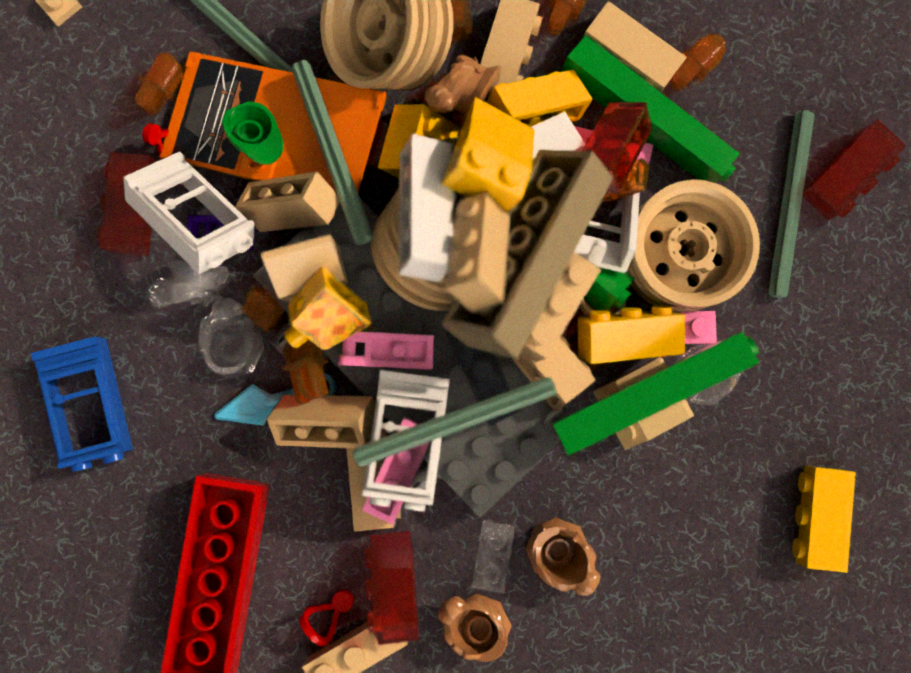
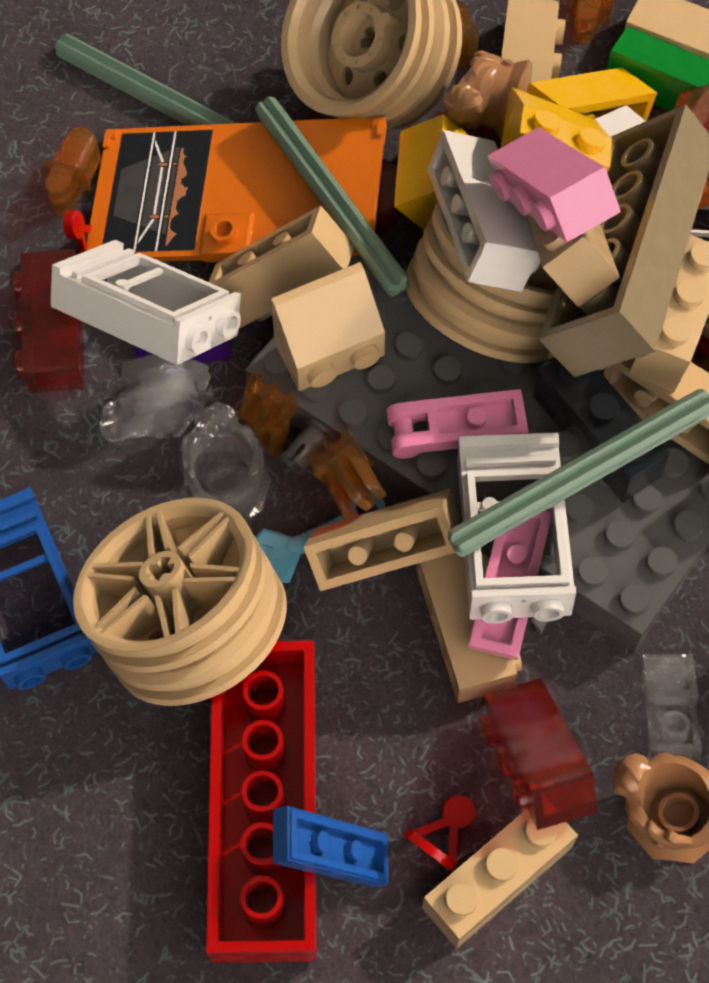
camera: 10 degrees left, 20 degrees down
(162, 438) = (195, 582): none -> tan wheel
(247, 626) = (329, 847): none -> blue tile
(254, 132) = (219, 188): green piece -> none
(325, 312) = (365, 377): yellow torso -> none
(465, 226) = (553, 184): none -> bright pink brick

